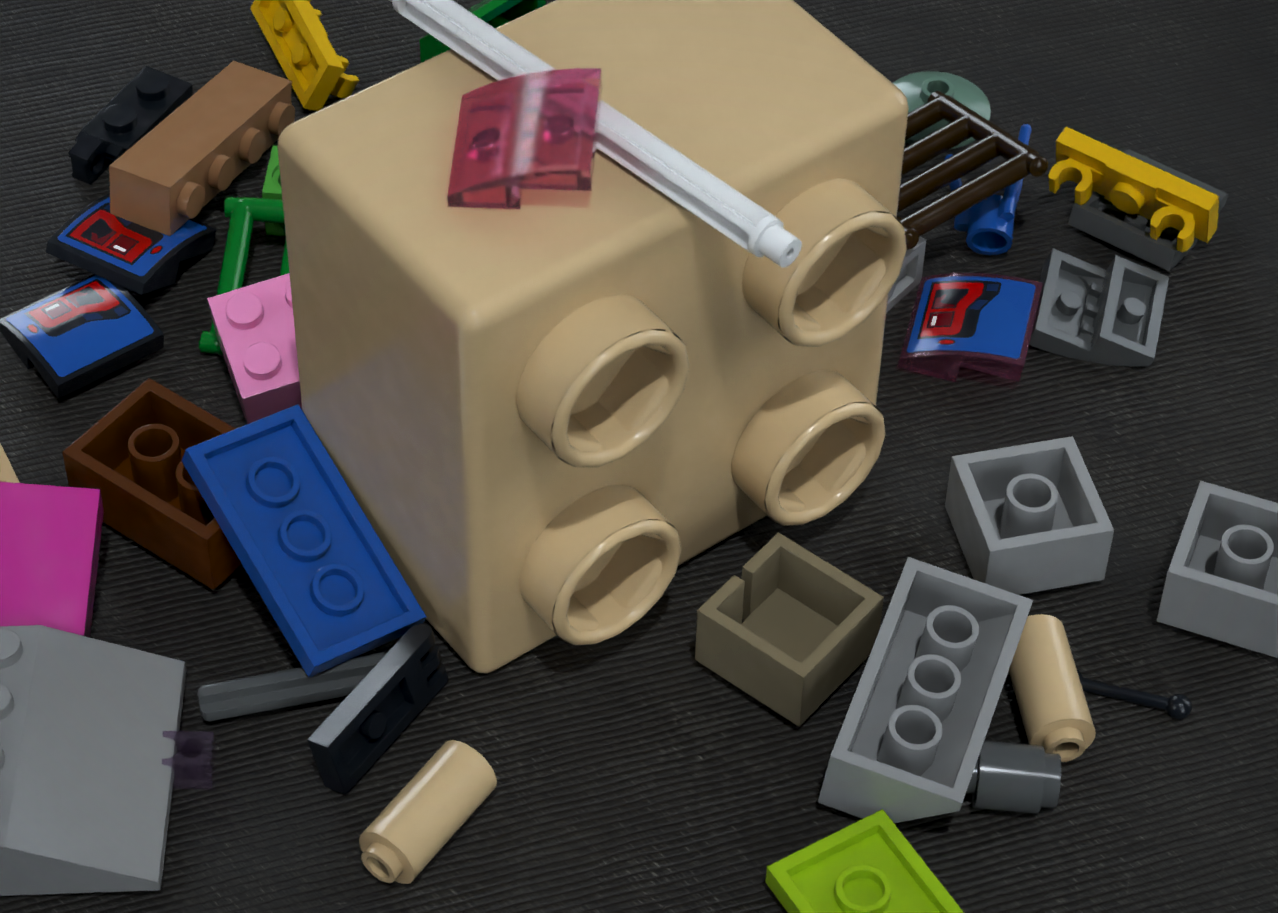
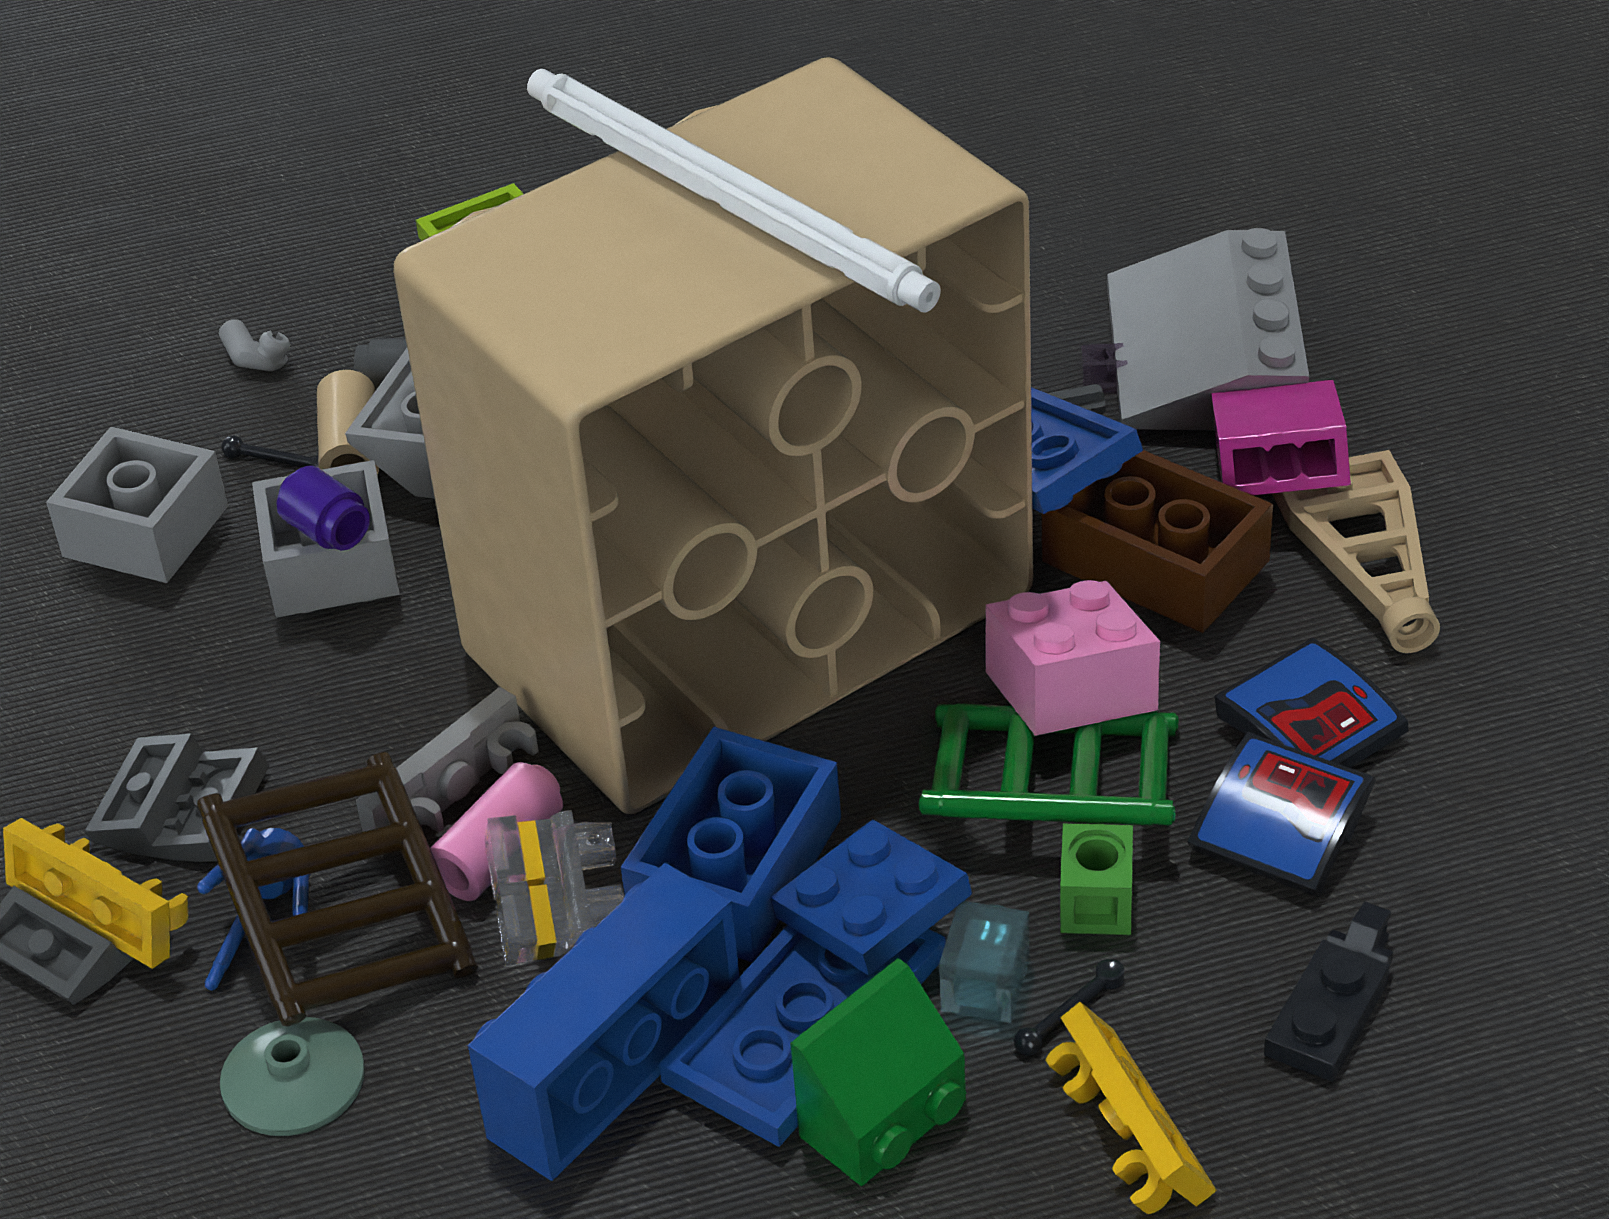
camera: 175 degrees left, 5 degrees down
(200, 148) = (1217, 902): medium nougat brick -> none
(526, 136) = (780, 137): clear pink slope -> none
(971, 324) = (317, 739): slope -> none
(1020, 446) = (323, 509): none -> dark purple brick
(1200, 833) = (265, 355): none -> light grey arm

